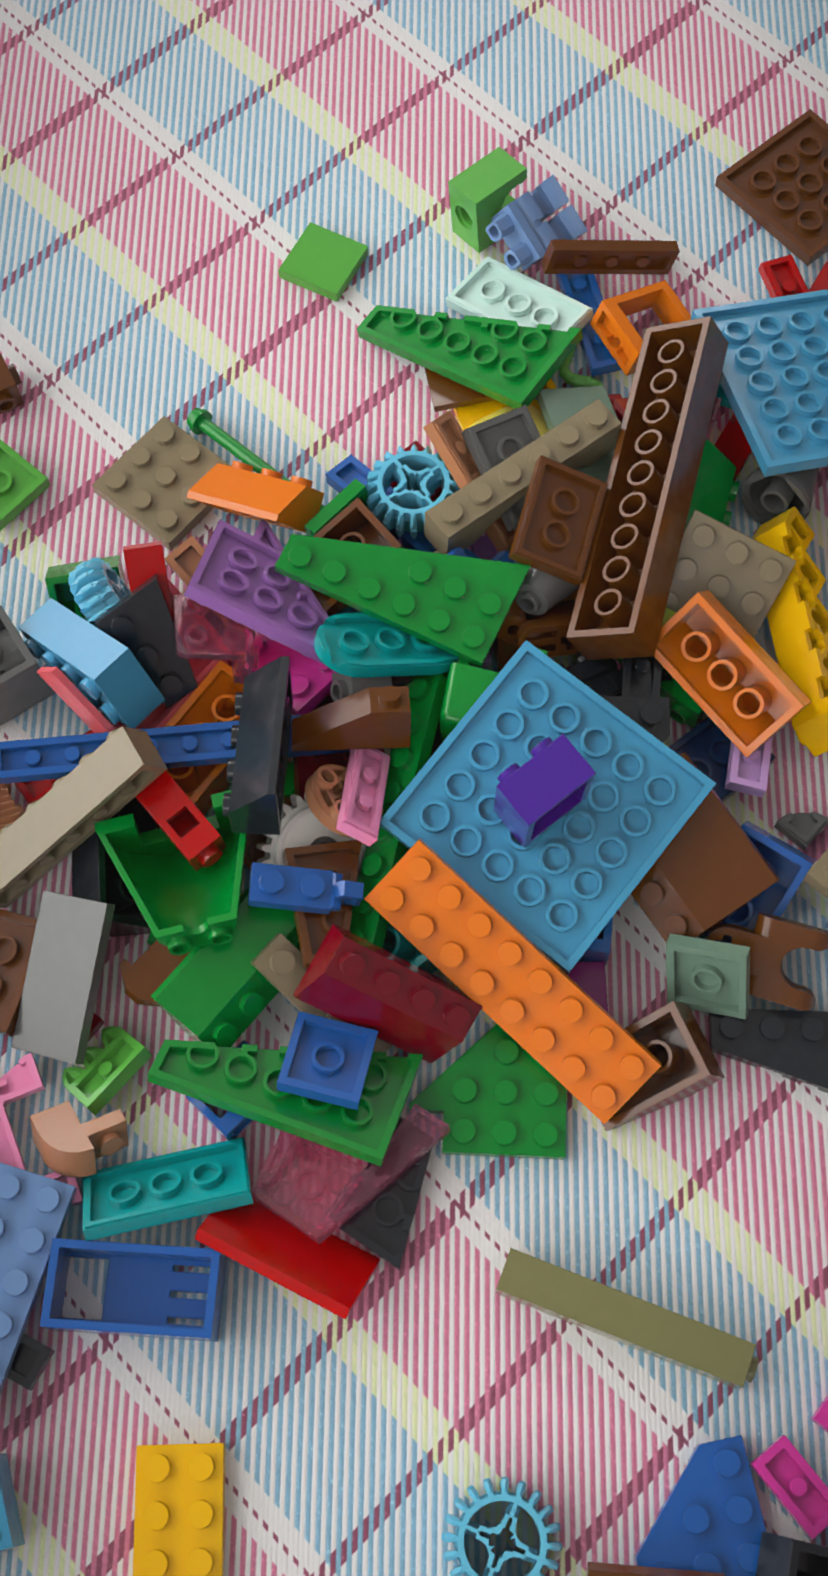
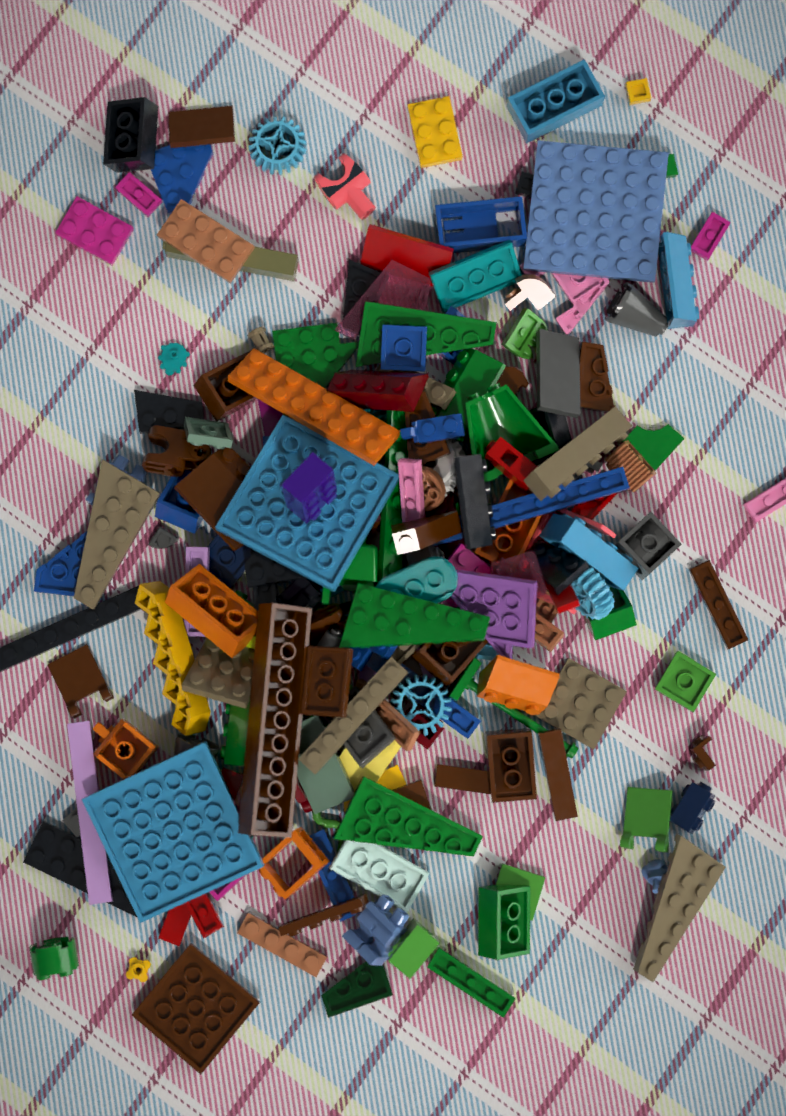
camera: 170 degrees right, 15 degrees up
(40, 316) = (692, 807): none -> dark blue brick
(99, 208) = (678, 900): none -> dark tan wing
(109, 318) = (647, 816): none -> bright green flag
(117, 249) = (653, 873): none -> medium blue piece
(226, 389) = (558, 774): none -> reddish brown tile
(292, 408) = (511, 765): none -> reddish brown slope
(345, 403) = (462, 779): none -> reddish brown tile
(351, 220) = (504, 921): none -> green slope
(374, 1417) = (347, 188): none -> coral connector
(407, 161) = (471, 982): none -> green plate
(580, 172) = (359, 988): none -> dark green wing
(589, 1141) = (260, 339): none -> dark tan bush
(674, 1348) = (205, 241): none -> nougat plate
(695, 257) = (282, 946): none -> nougat plate
(756, 1140) = (173, 358): none -> teal piece

